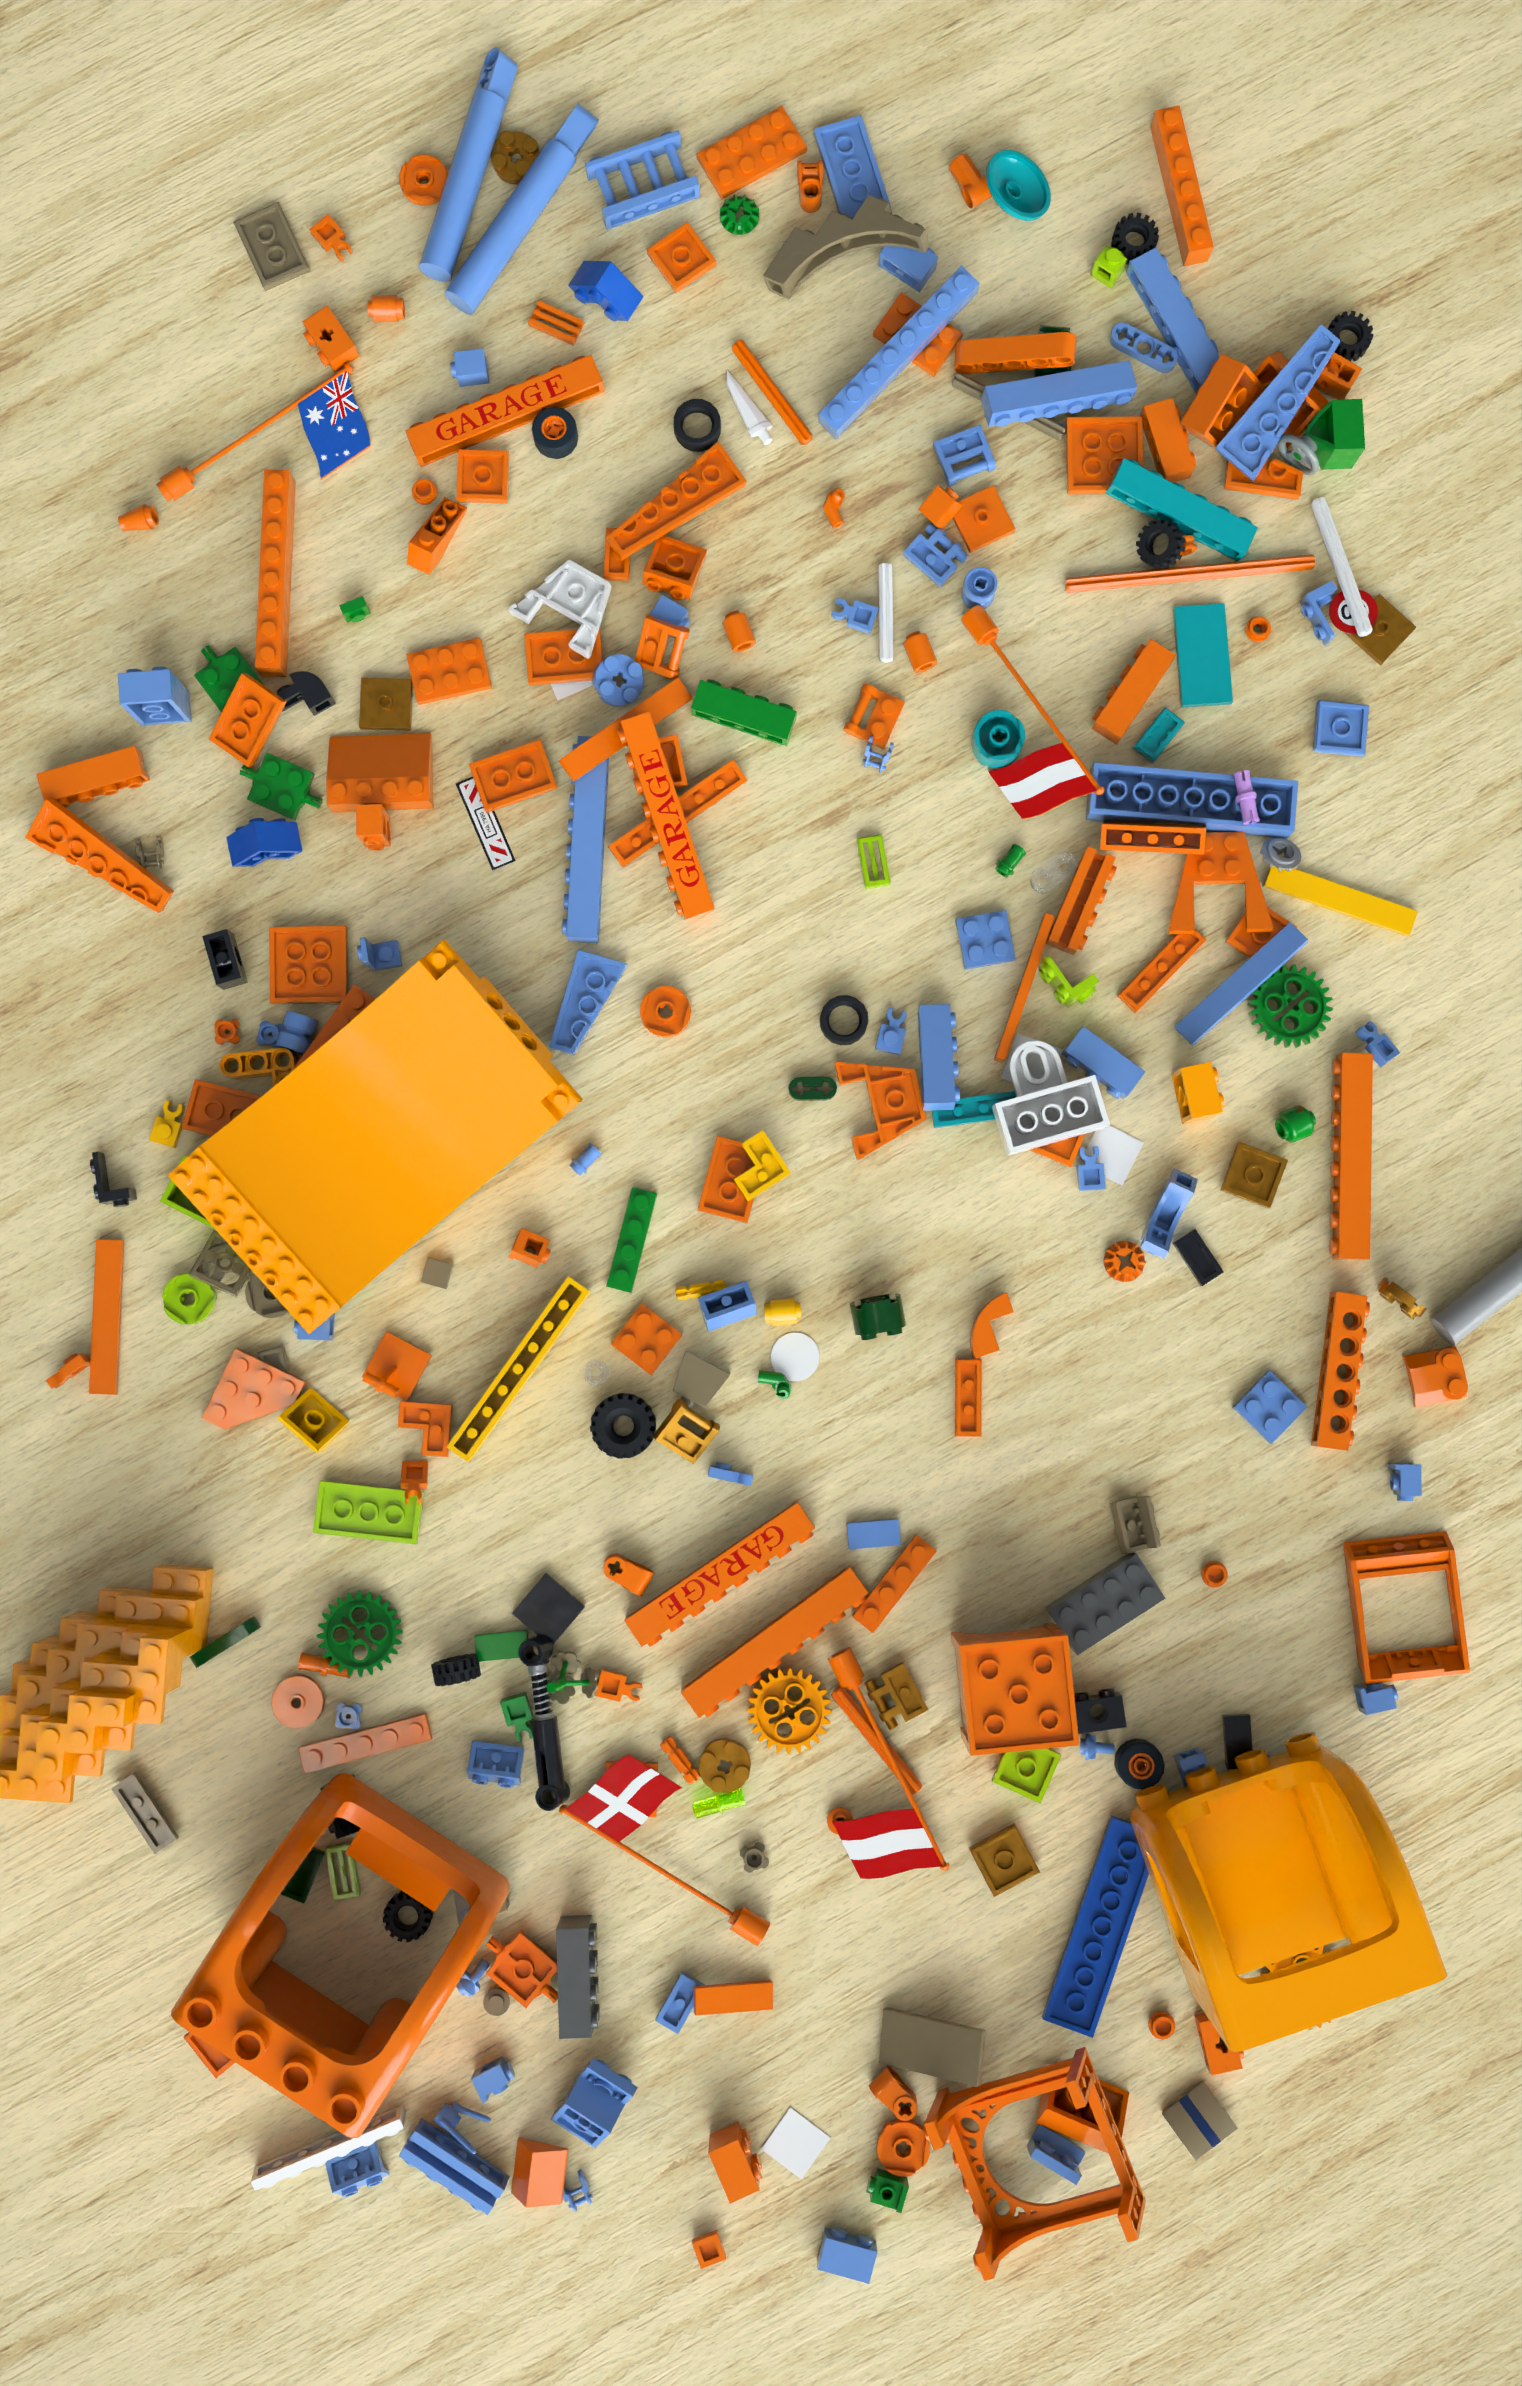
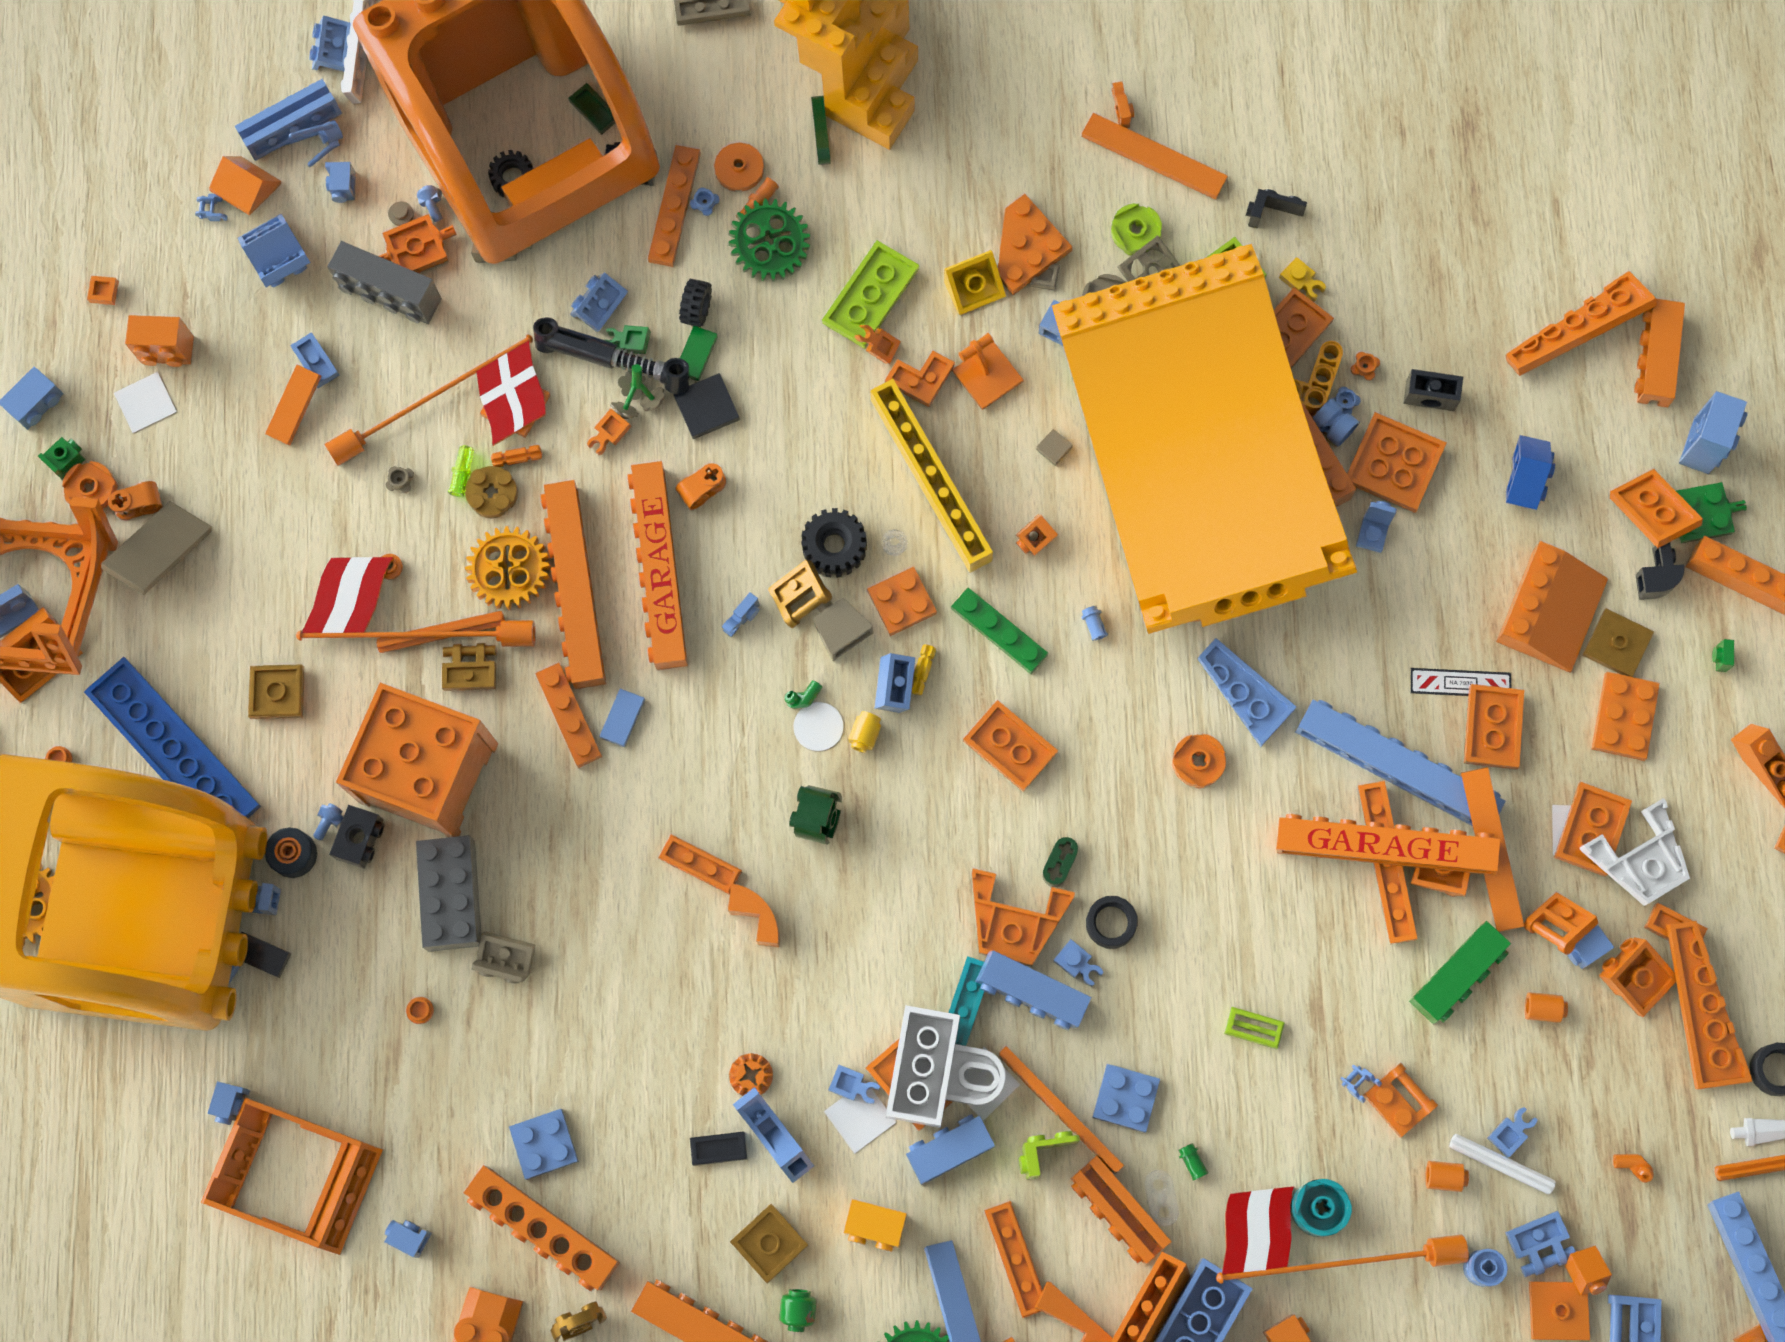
camera: 120 degrees right, 10 degrees down
(159, 852) = (1563, 379): dark tan piece -> none
(281, 786) = (1578, 513): green plate -> none
(339, 1848) = (574, 140): lime tile -> none
(373, 826) = (1500, 573): orange brick -> none
(631, 674) = (1542, 852): medium blue plate -> none
(768, 1167) = (1003, 779): yellow plate -> none
(1027, 1772) = (334, 745): lime plate -> none

